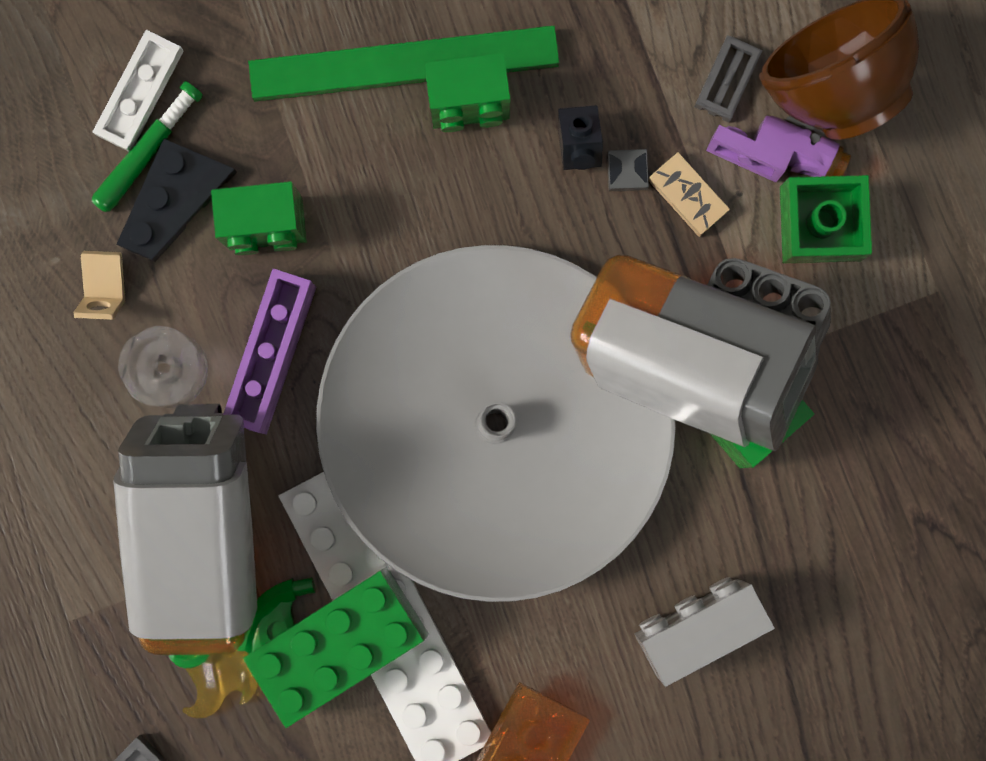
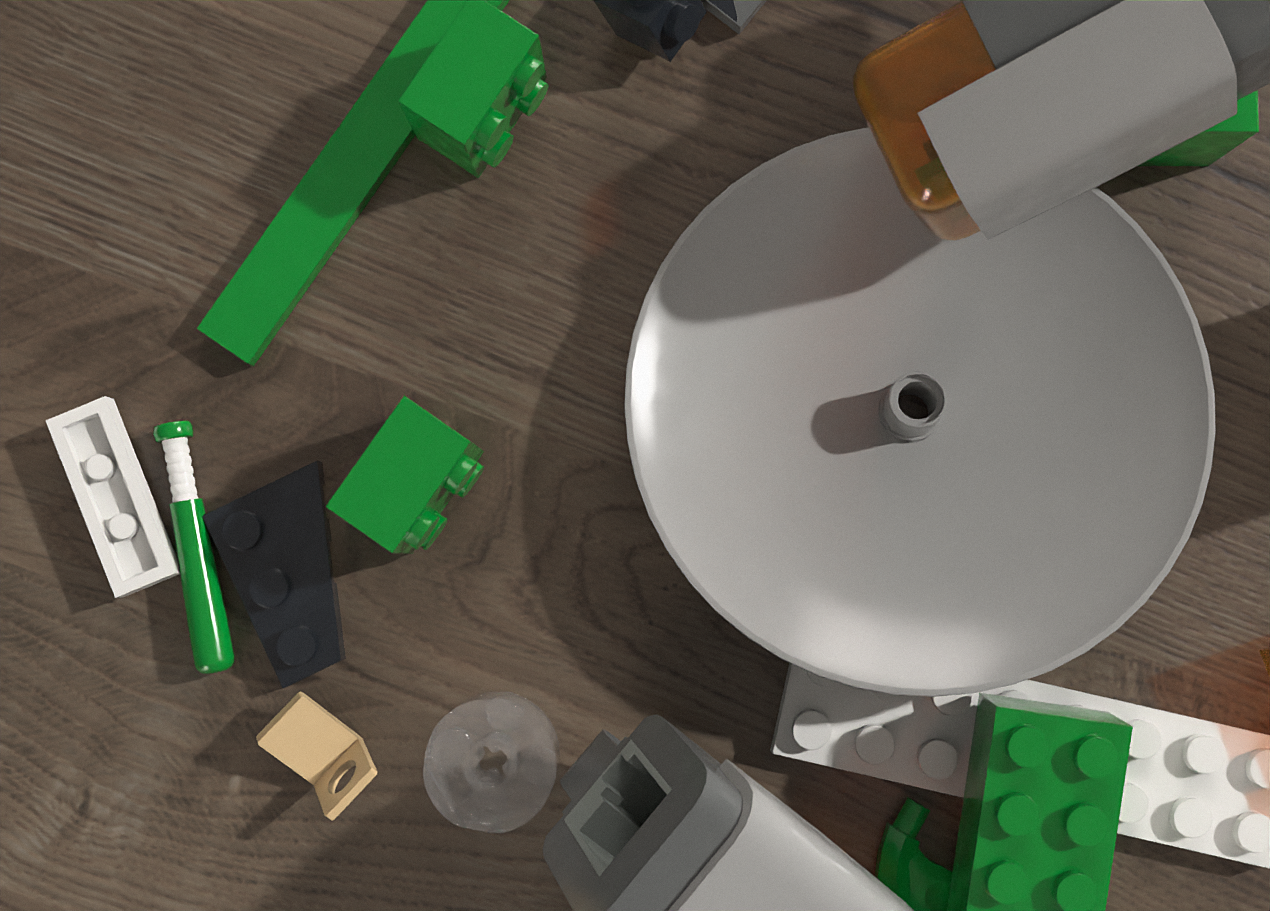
camera: 50 degrees left, 0 degrees up
(270, 350) = (586, 609): medium lavender brick -> none

